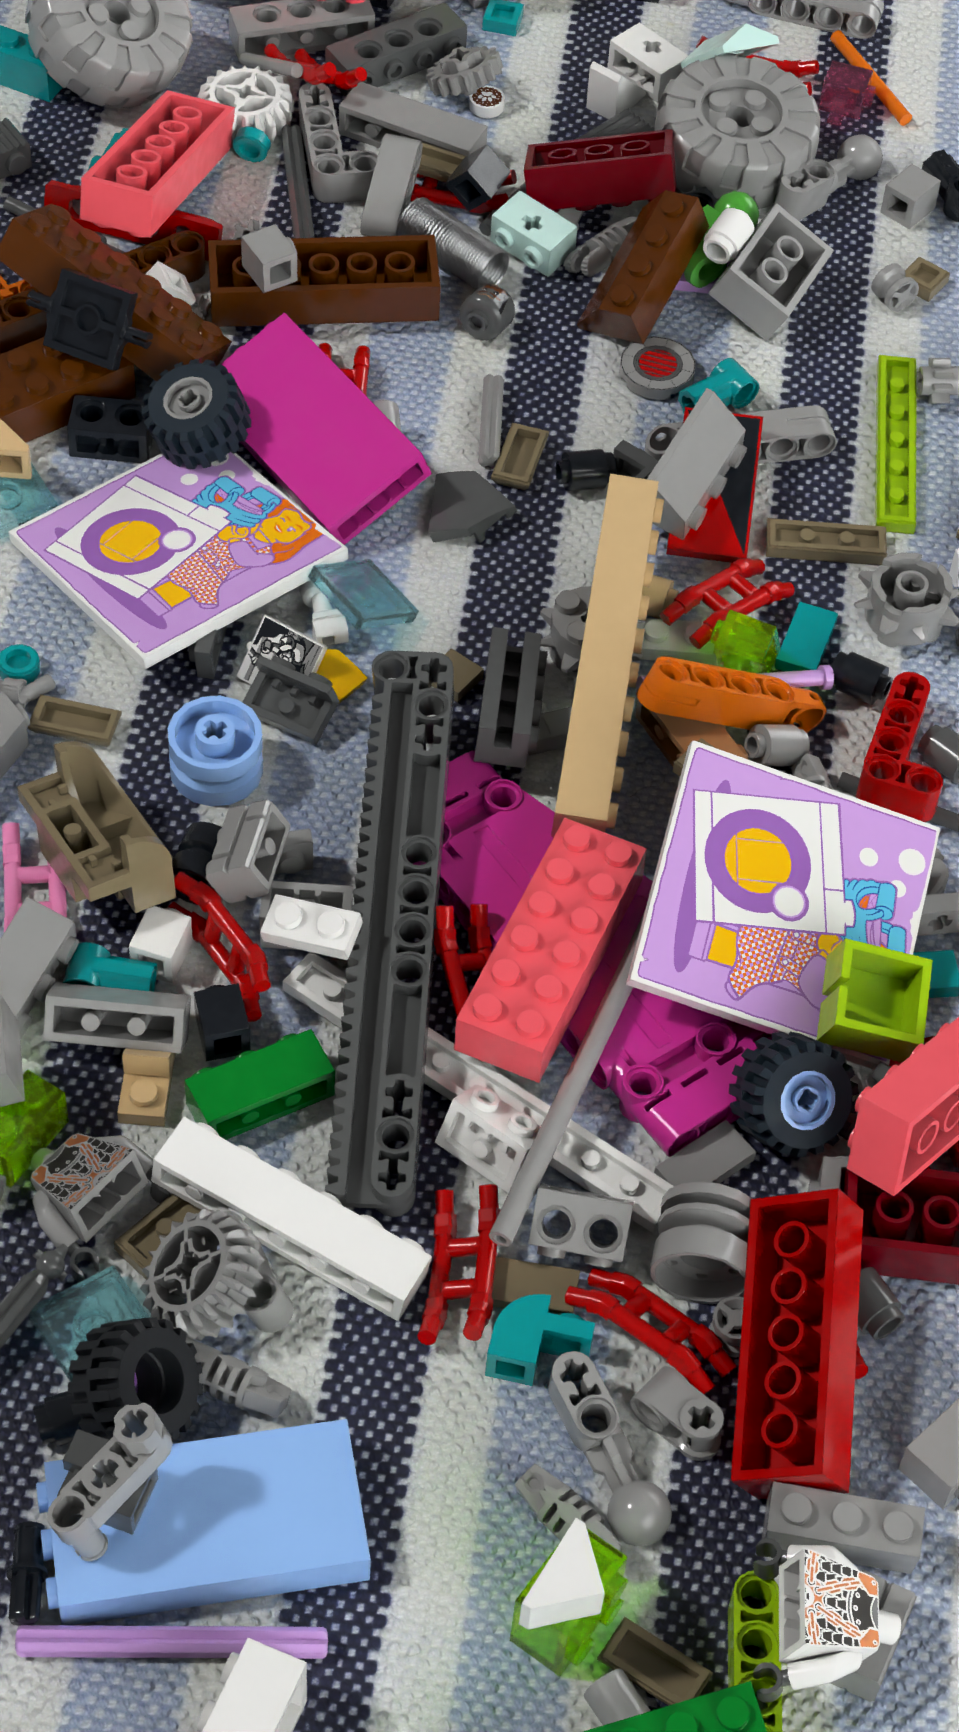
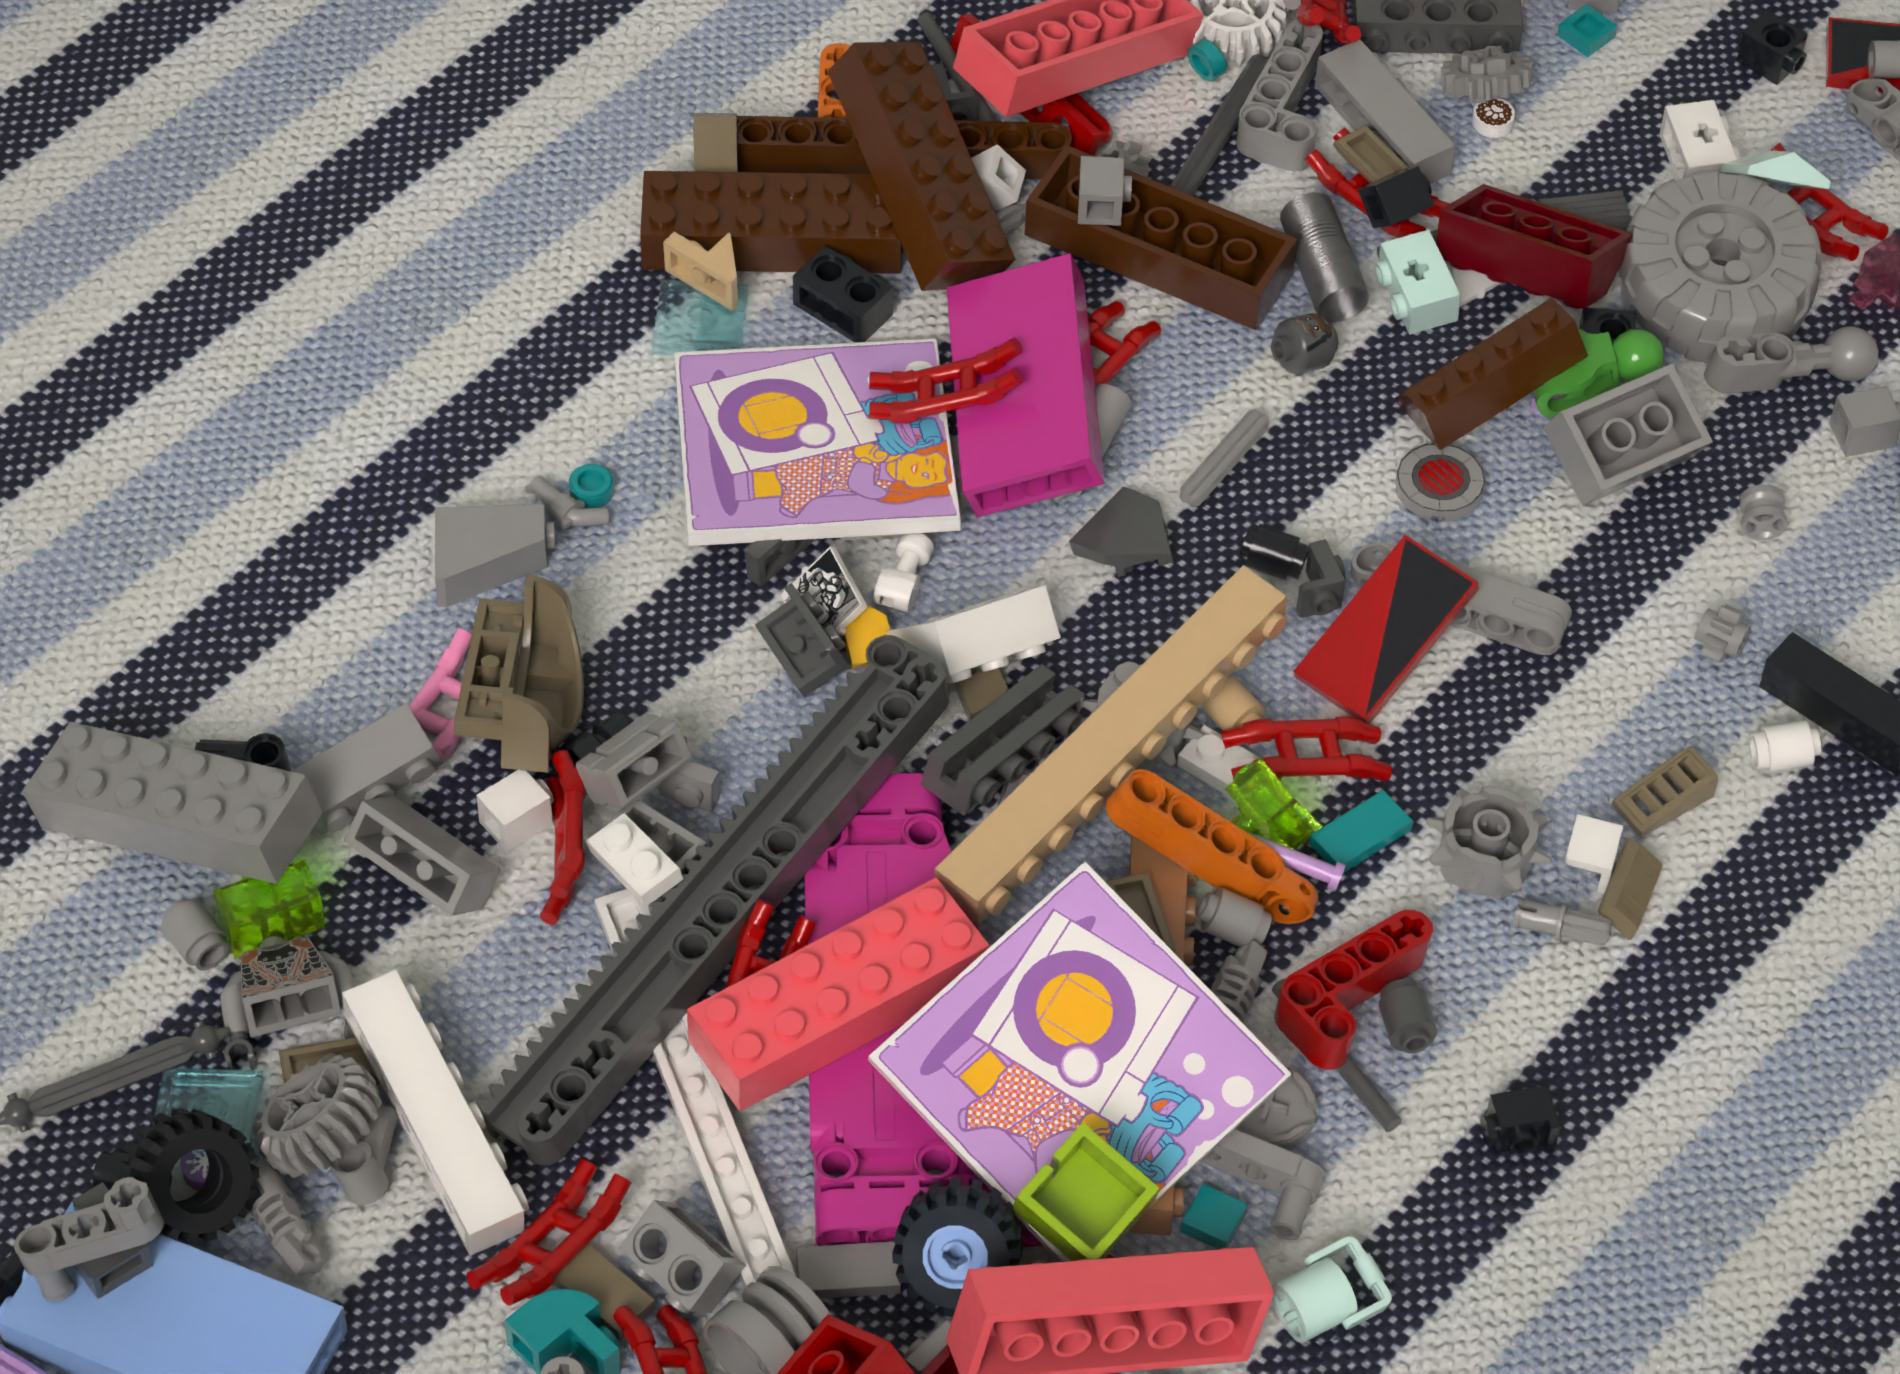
camera: 35 degrees right, 0 degrees up
(74, 720) = (600, 563): dark tan tile -> none
(89, 319) = (871, 176): black plate -> none
(96, 967) = (444, 804): teal piece -> none
(145, 1087) = (408, 930): tan slope -> none
(196, 414) = (917, 316): black wheel -> none
(215, 750) = (696, 655): light blue wheel -> none
(222, 1021) = (513, 908): black brick -> none
(261, 1085) = (498, 982): green brick -> none
(268, 435) = (924, 383): none -> red piece
(363, 594) = (948, 568): clear light blue tile -> none
(391, 185) = (1304, 164): light grey beam -> none
(429, 621) = (986, 632): none -> white wedge
(487, 1135) = (667, 1136): white bracket -> none
(519, 456) = (1223, 507): dark tan tile -> none
(564, 1102) = (730, 1148): light grey piece -> none
(599, 250) = (1467, 331): light grey hinge -> none
(610, 92) = (1633, 162): white slope -> none
(696, 464) = (1357, 598): light grey slope -> none
(728, 235) = (1590, 375): white brick -> none
(729, 383) = (1492, 534): teal piece -> none
(825, 541) = (1467, 743): dark tan tile -> none
(861, 677) = (1376, 891): black brick -> none
(895, 444) = (1626, 679): lime tile -> none
(928, 276) = (1811, 518): dark tan tile -> none

